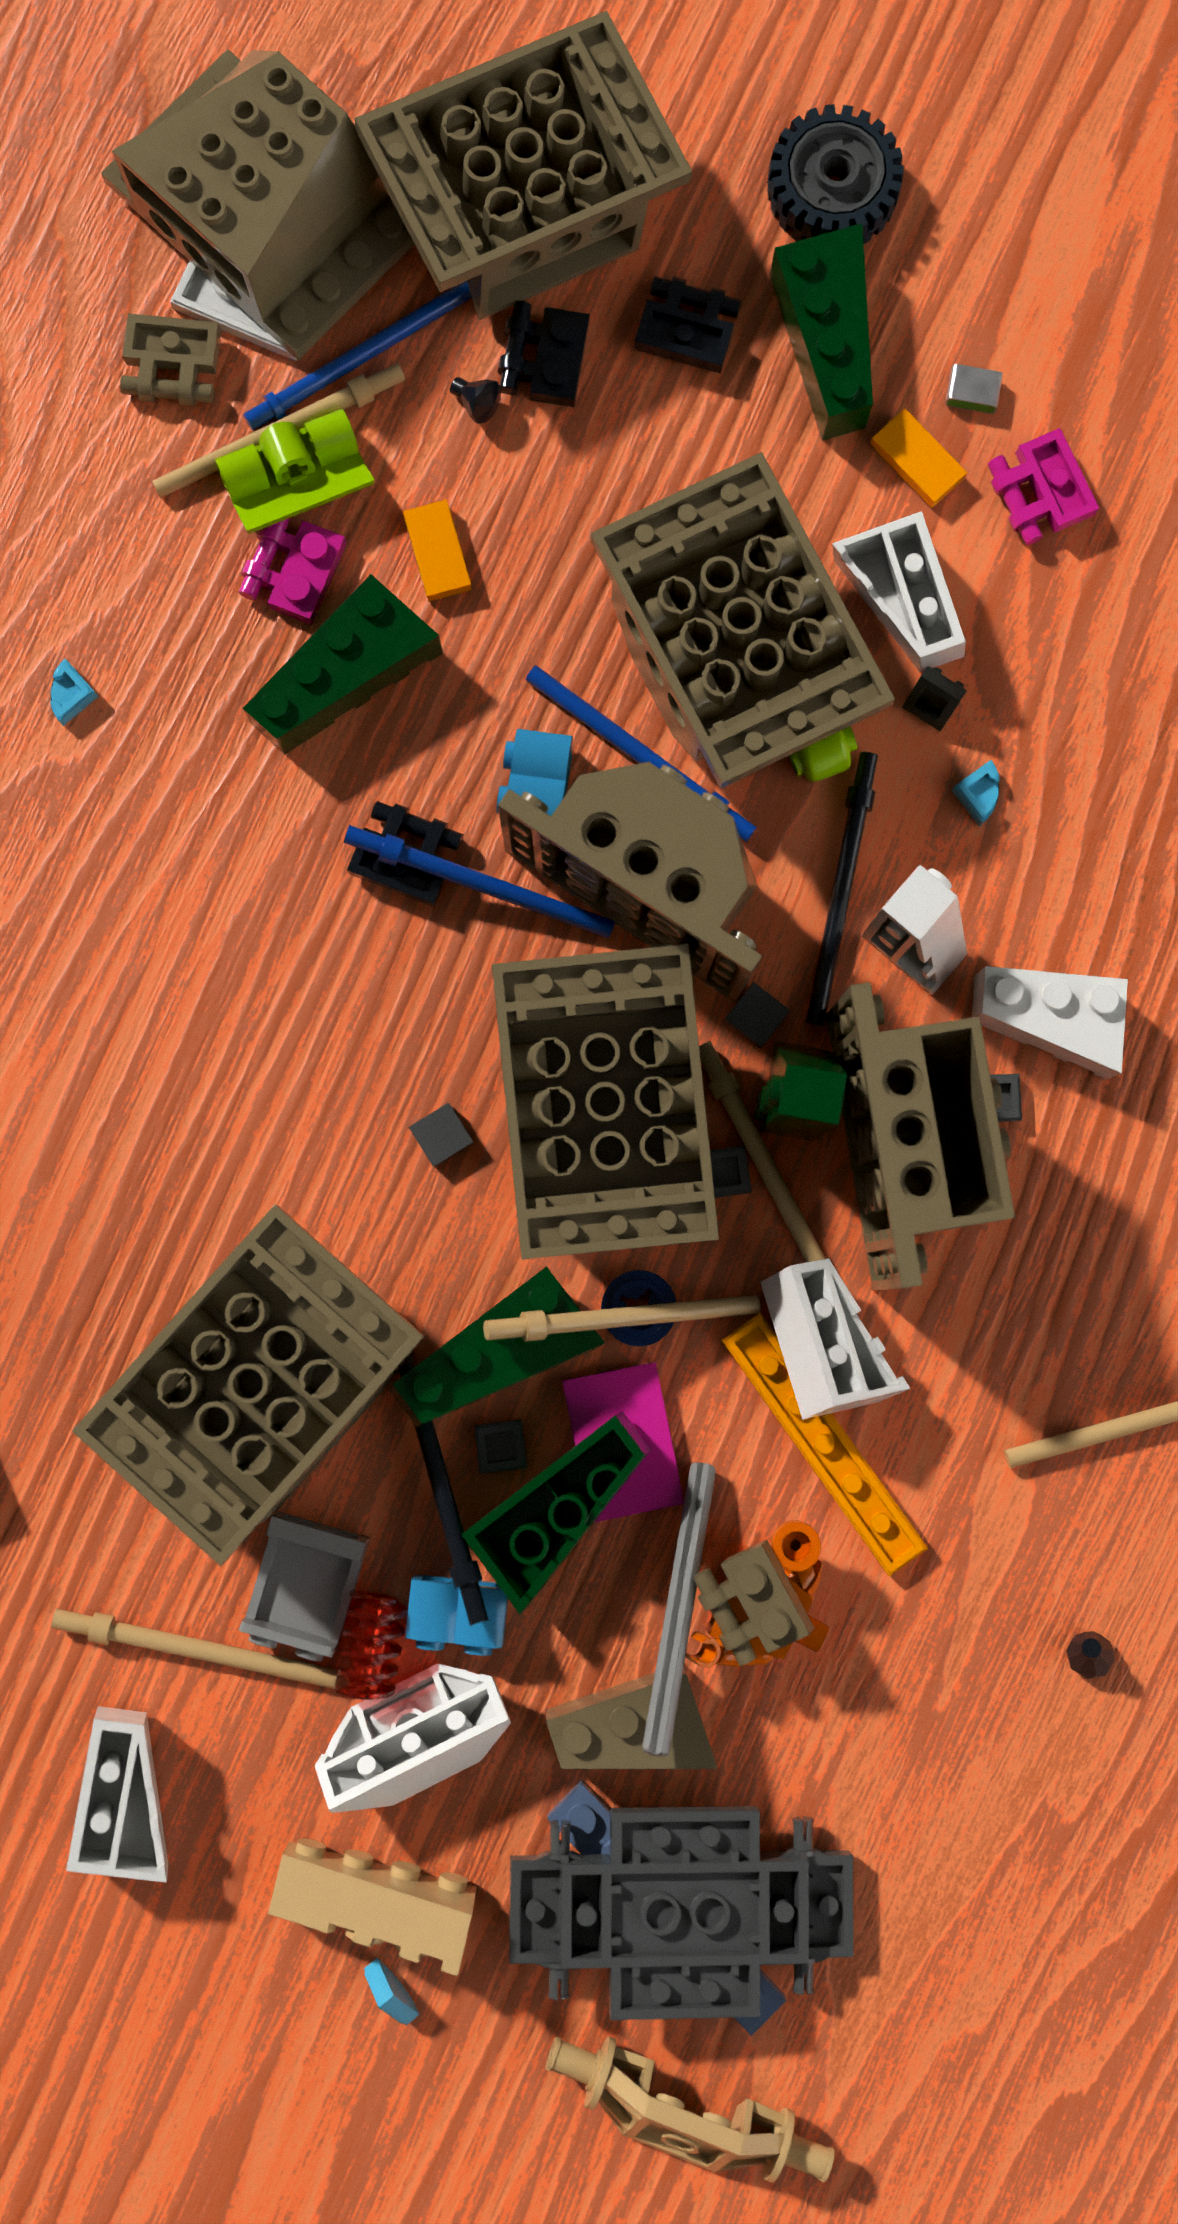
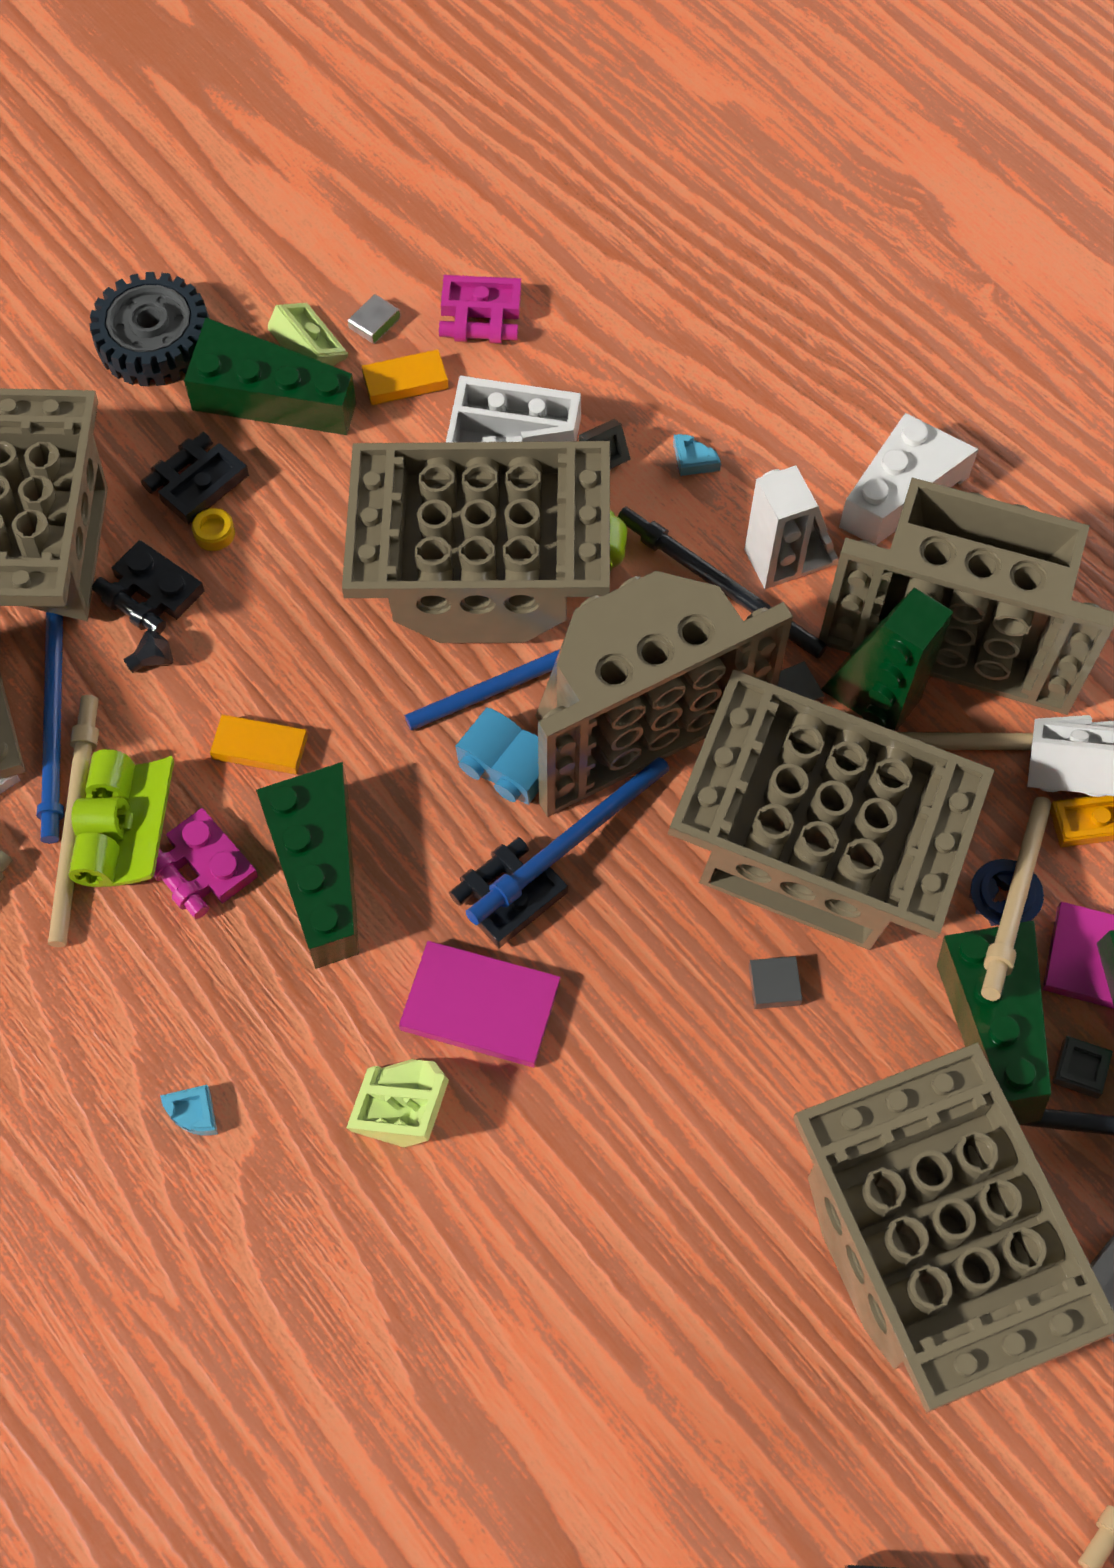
camera: 60 degrees left, 20 degrees down
(161, 861) = (399, 1102): none -> yellowish green slope
(288, 884) = (480, 1004): none -> dark pink tile
(642, 375) = (213, 529): none -> yellow tile
(914, 335) = (304, 332): none -> yellowish green slope

